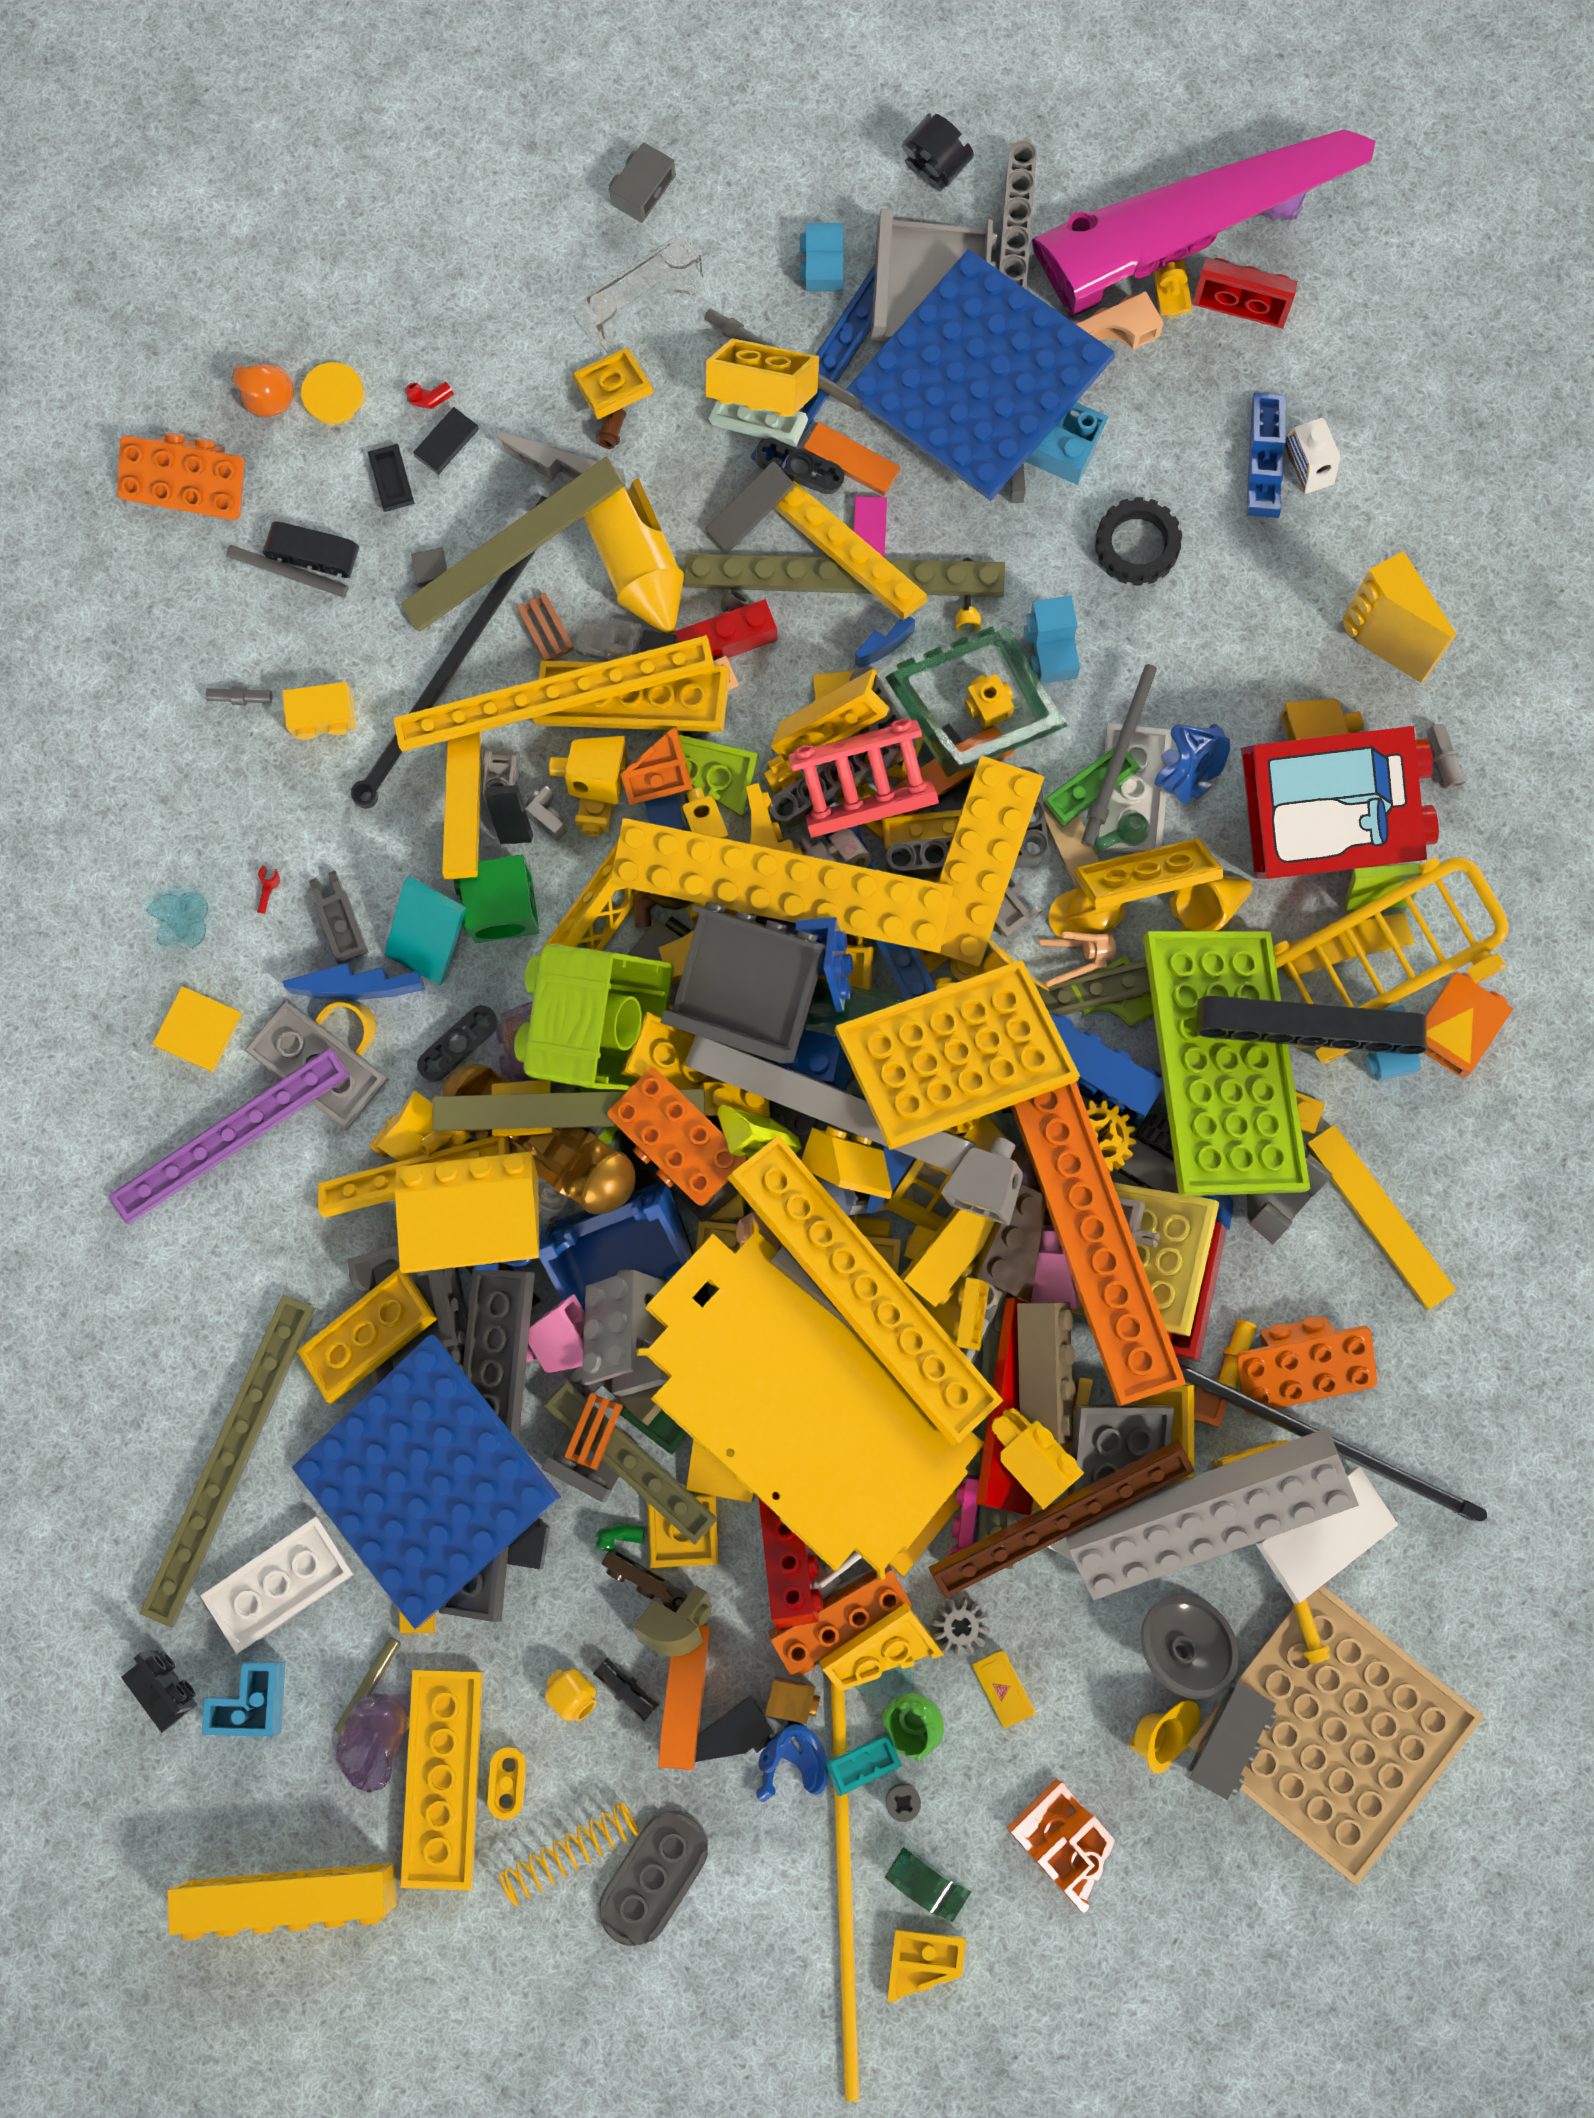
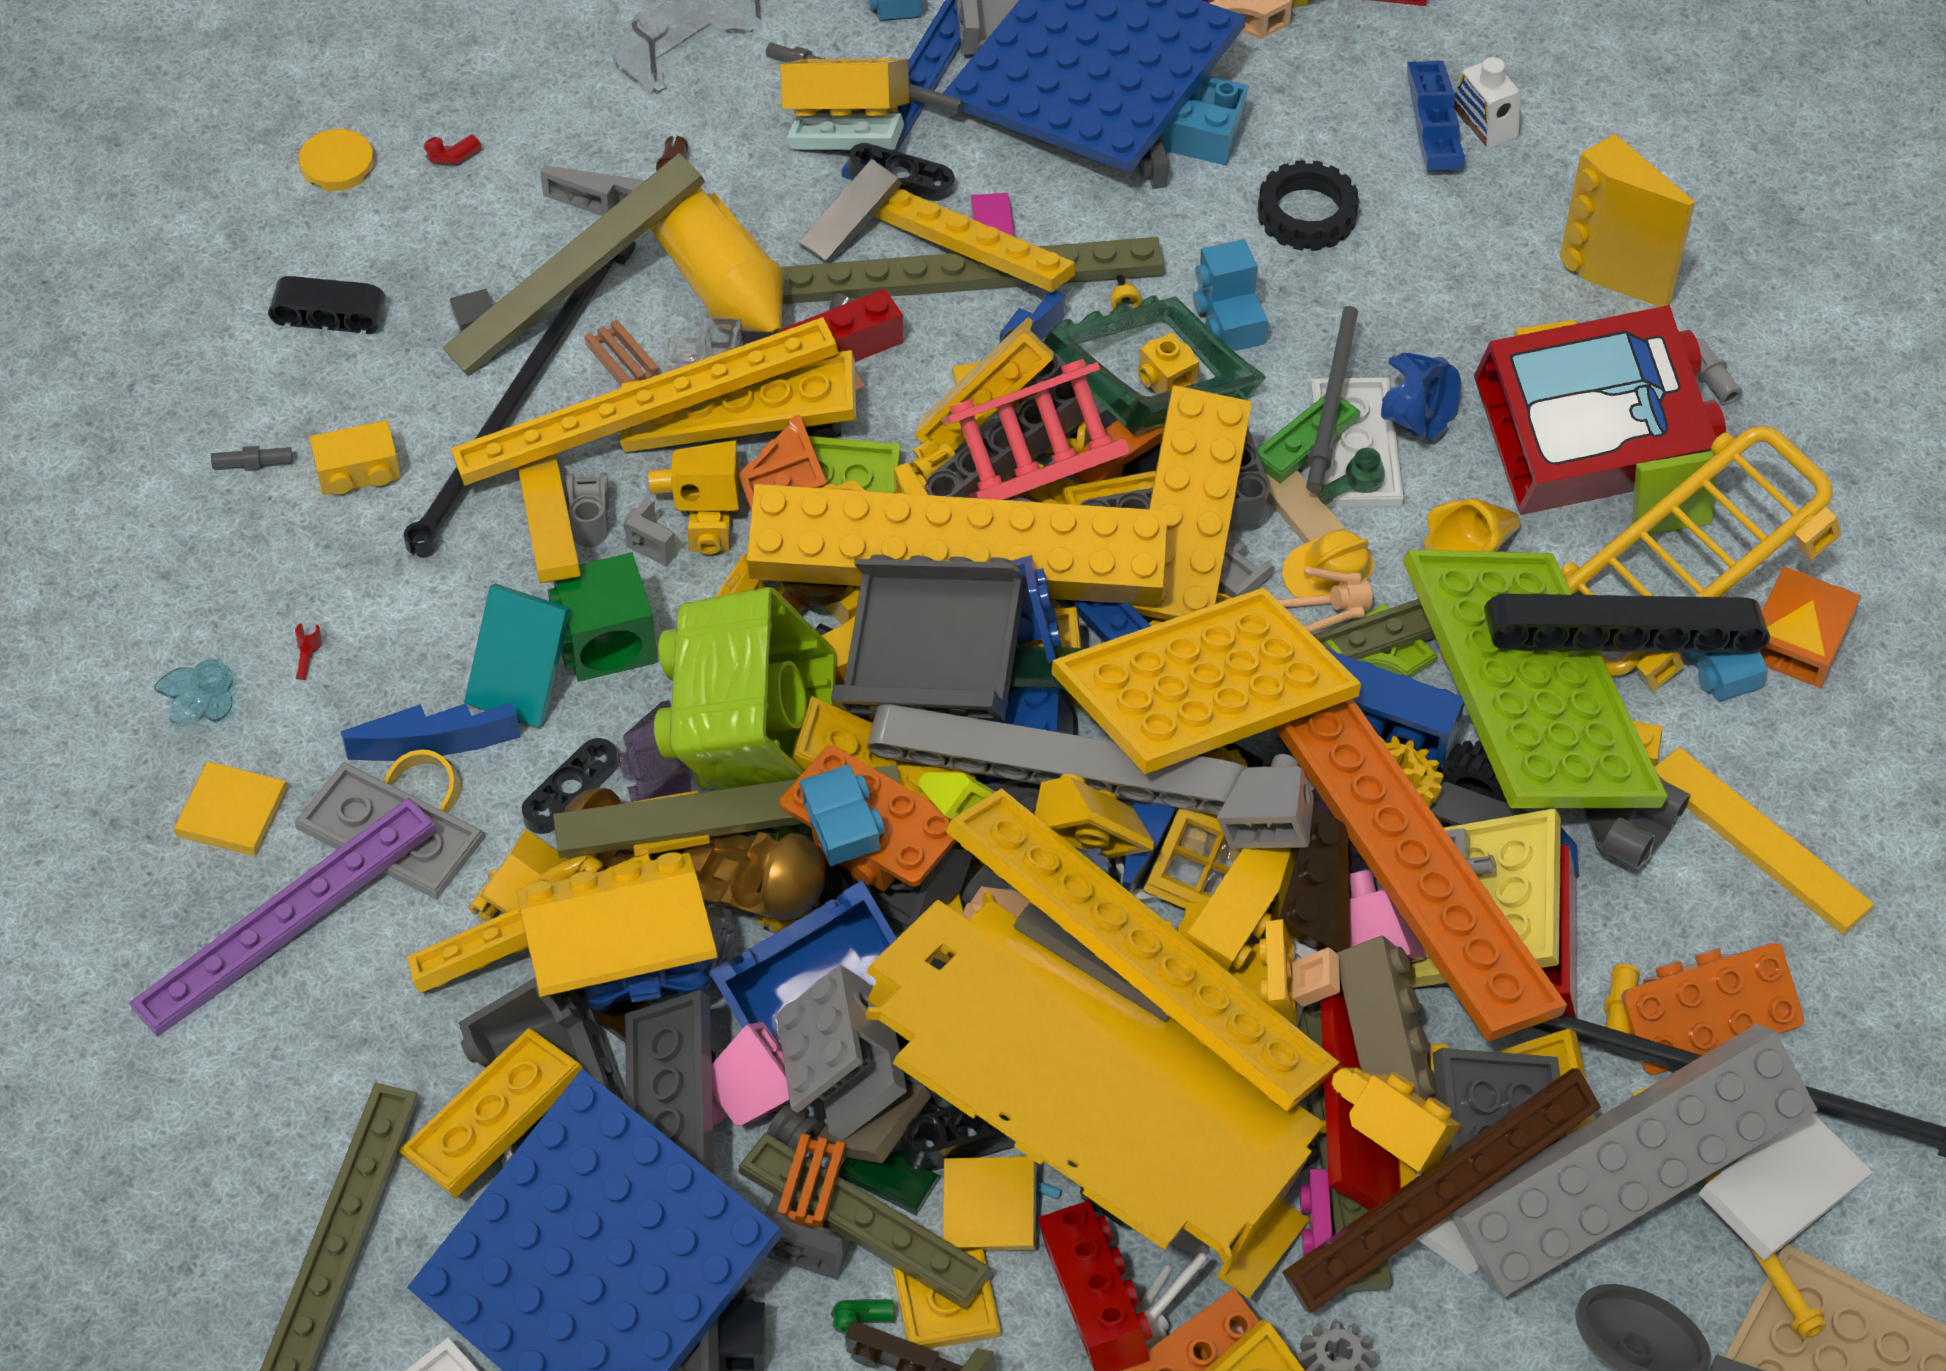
camera: 15 degrees left, 25 degrees down
(181, 475) = (161, 248): orange bracket -> none
(264, 389) = (253, 158): orange piece -> none
(287, 571) = (299, 332): dark grey bar -> none
(339, 921) = (402, 669): dark grey hinge -> none
(391, 477) = (415, 232): black tile -> none
(445, 440) = (477, 191): black tile -> none
(508, 814) = (603, 524): black tile -> none
(612, 383) = (668, 116): yellow tile -> none
(649, 1145) = (841, 815): none -> dark azure brick
(854, 459) = (968, 165): orange tile -> none
(999, 1322) = (1316, 977): none -> light nougat plate
(1148, 873) = (1393, 505): yellow tile -> none
(1208, 1408) = (1601, 1068): orange plate -> none
(1369, 937) = (1648, 565): yellow slope -> none

